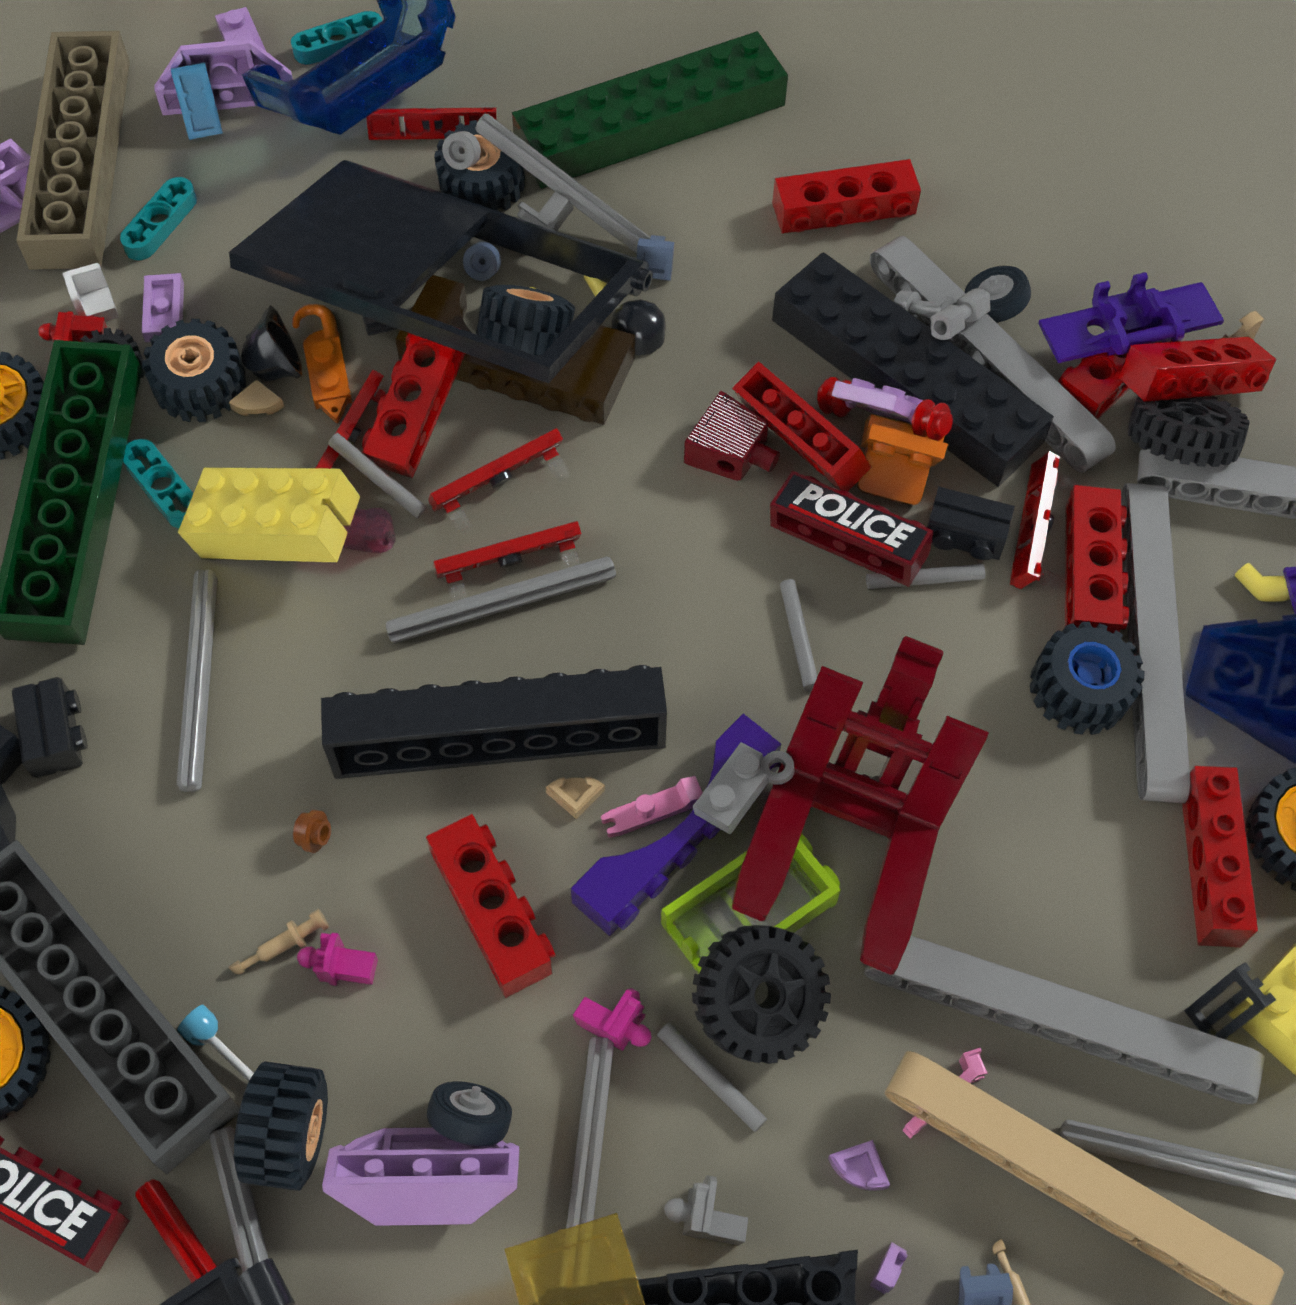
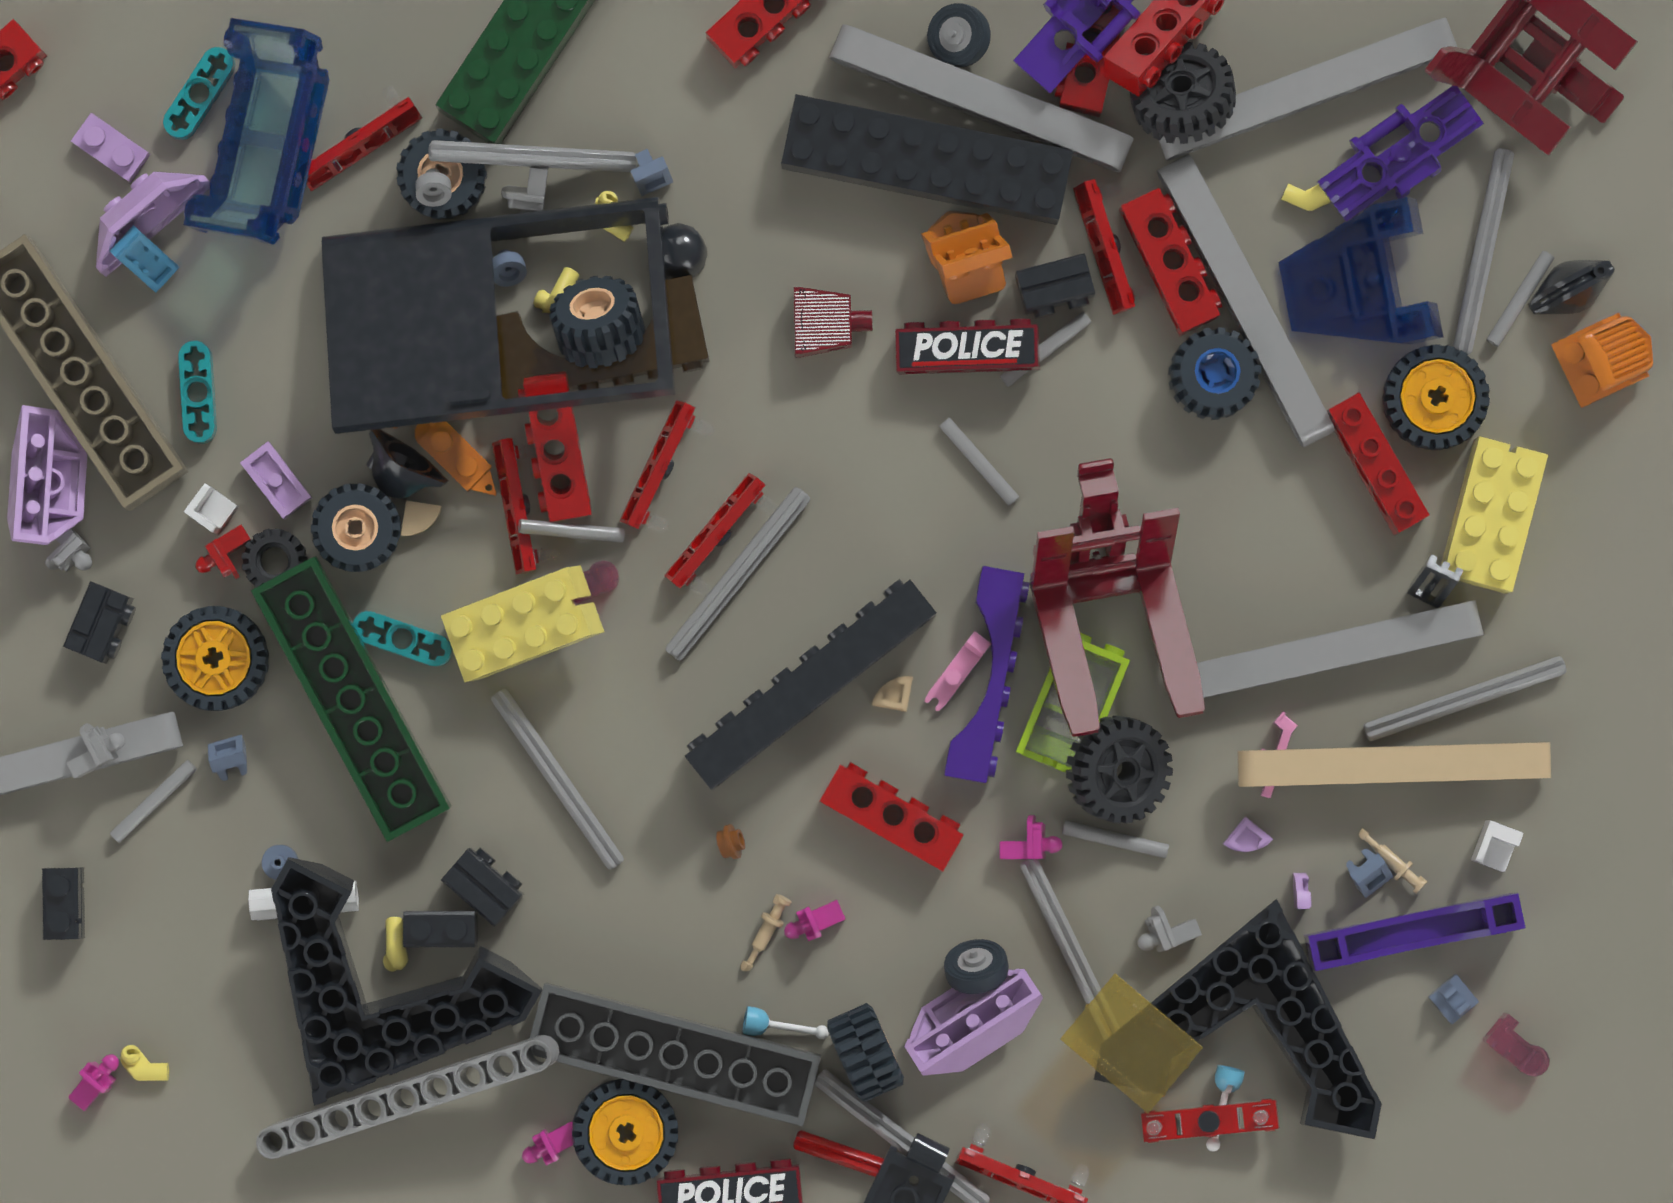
camera: 30 degrees left, 25 degrees up
(739, 785) = (1016, 627): light grey hinge -> none
(802, 427) = (879, 284): red brick -> none
(926, 417) = (935, 225): plate -> none
(947, 316) = (938, 98): light grey bar -> none

